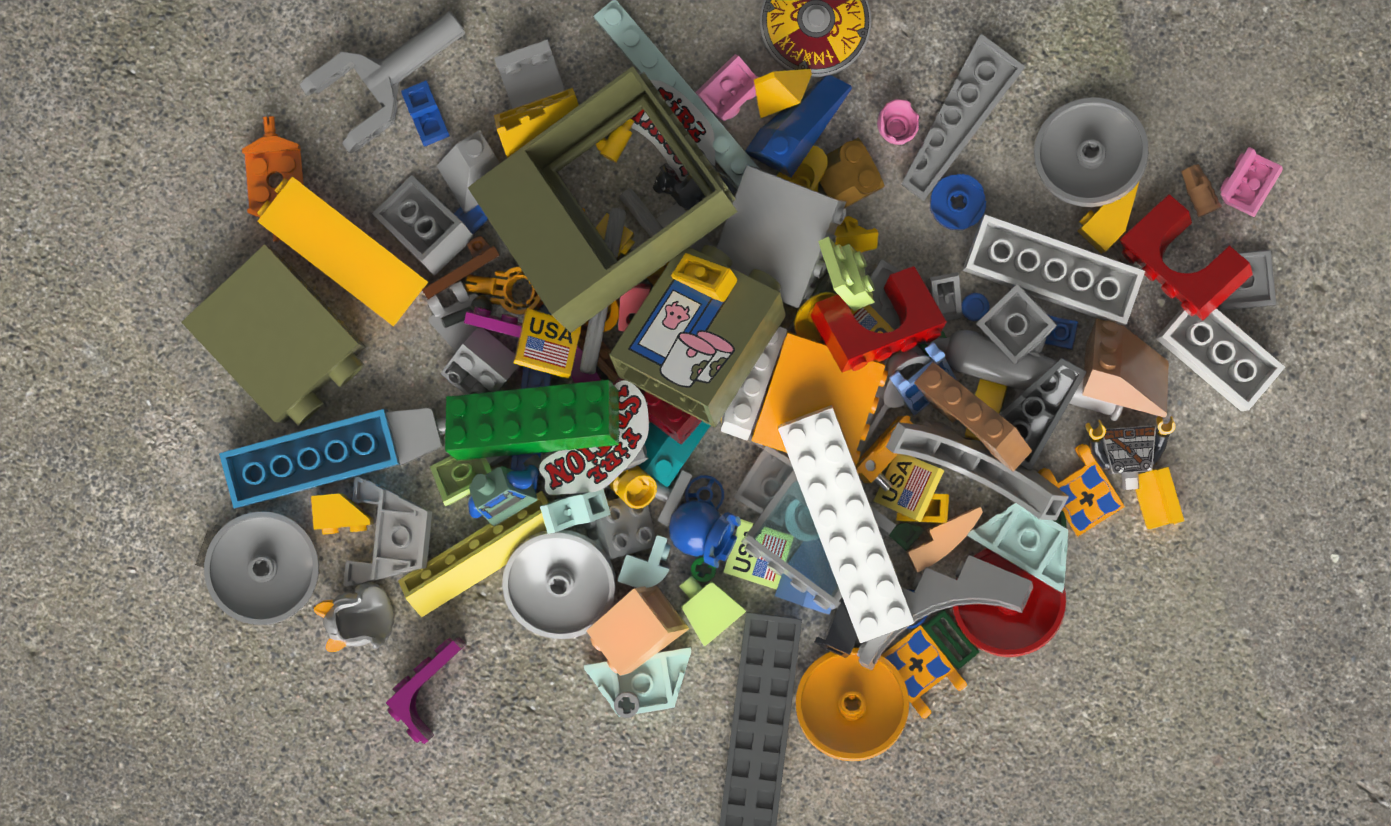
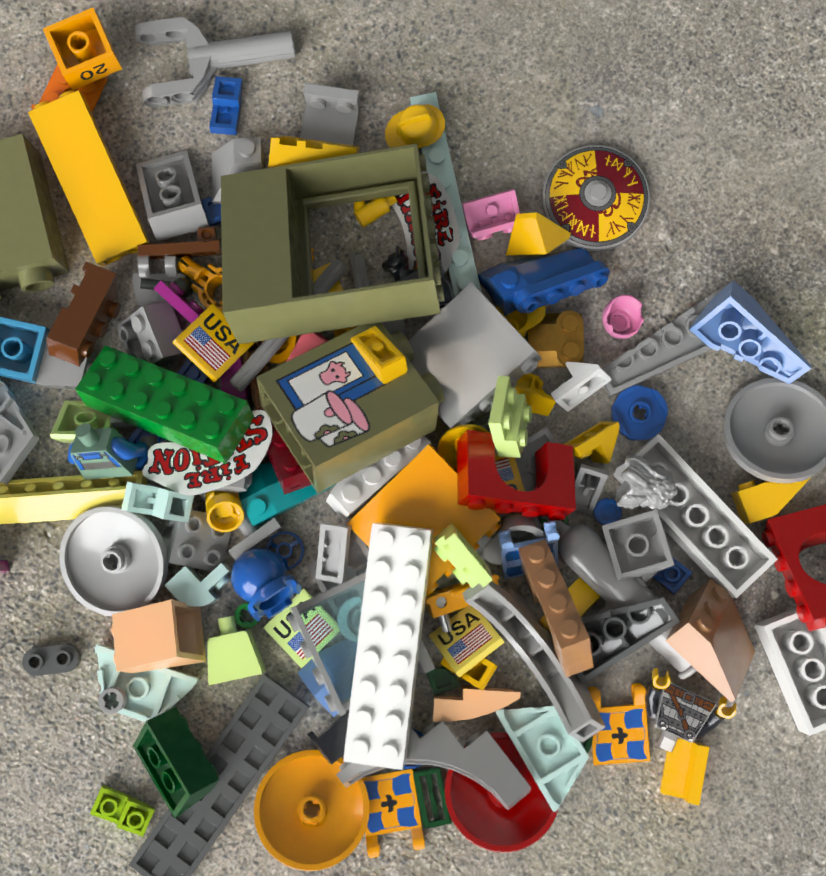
camera: 30 degrees right, 5 degrees down
(271, 134) = (82, 48): none -> light orange brick
(413, 380) = (87, 316): none -> reddish brown wedge
(549, 701) = (50, 659): none -> dark grey plate
(614, 44) = (415, 125): none -> yellow piece
(686, 795) = (124, 810): none -> lime slope
(711, 727) = (175, 761): none -> dark green slope
(753, 472) = (333, 552): none -> tile
(828, 124) = (560, 287): none -> blue plate
(871, 415) = (467, 562): none -> yellowish green plate
(895, 200) = (585, 381): none -> white slope
(932, 249) = (596, 442): none -> yellow slope
(995, 268) = (644, 484): none -> light grey hair
(1012, 77) = (742, 328): none -> medium blue wedge

